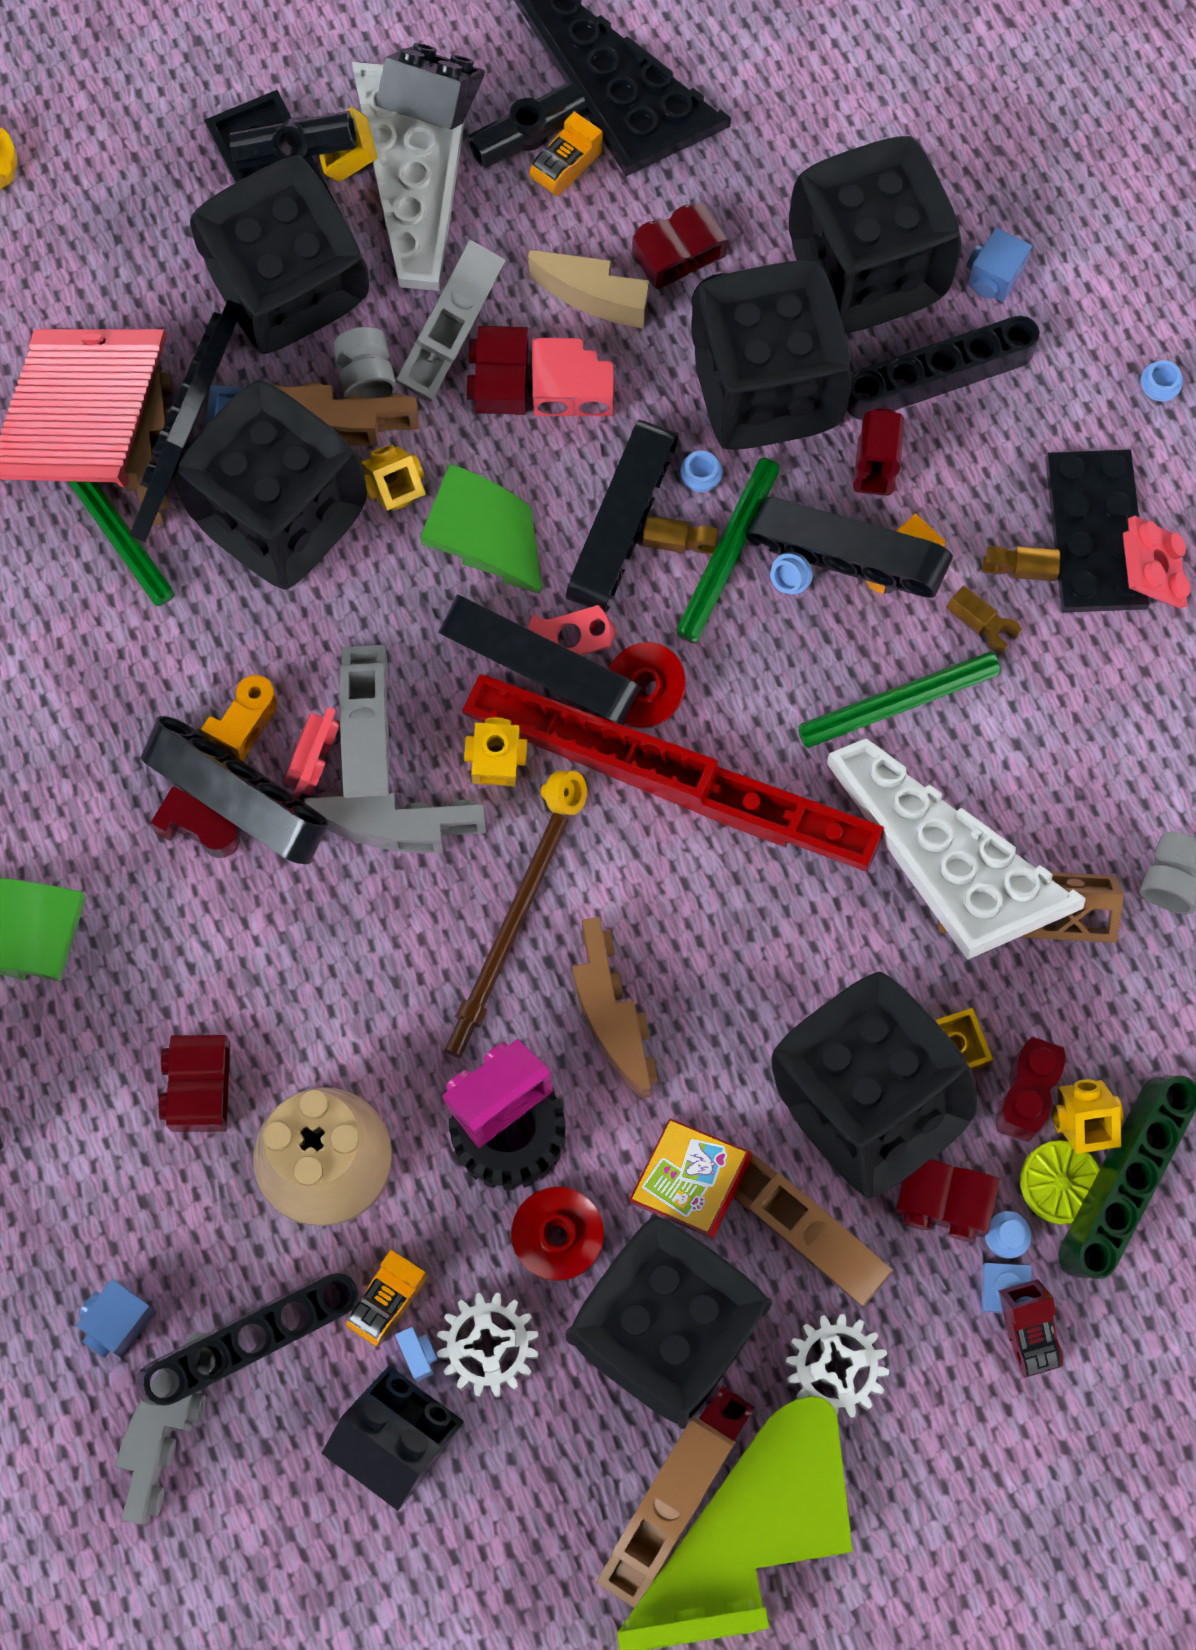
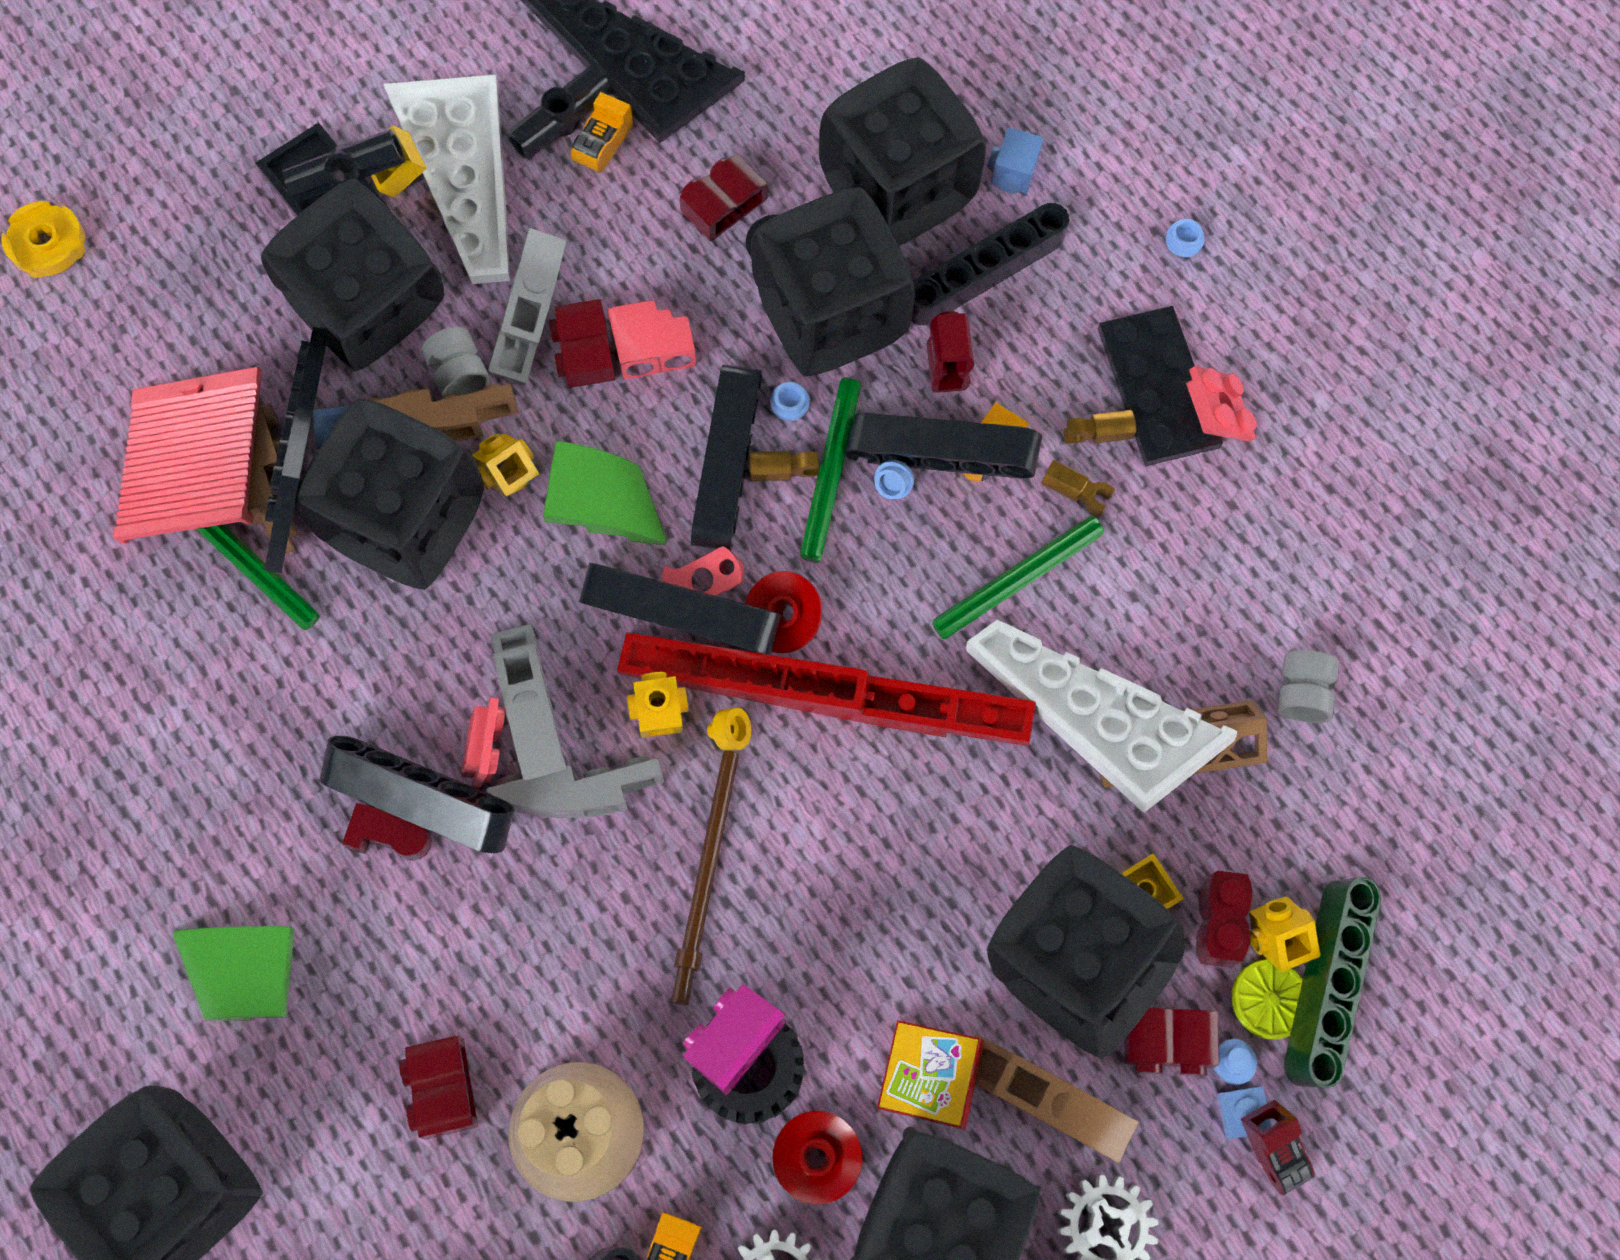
camera: 15 degrees left, 0 degrees up
(245, 717) = (411, 722): light orange leg -> none
(429, 85) = (460, 92): slope -> none
(591, 287) = (649, 251): tan slope -> none
(613, 1025) = (827, 944): medium nougat slope -> none

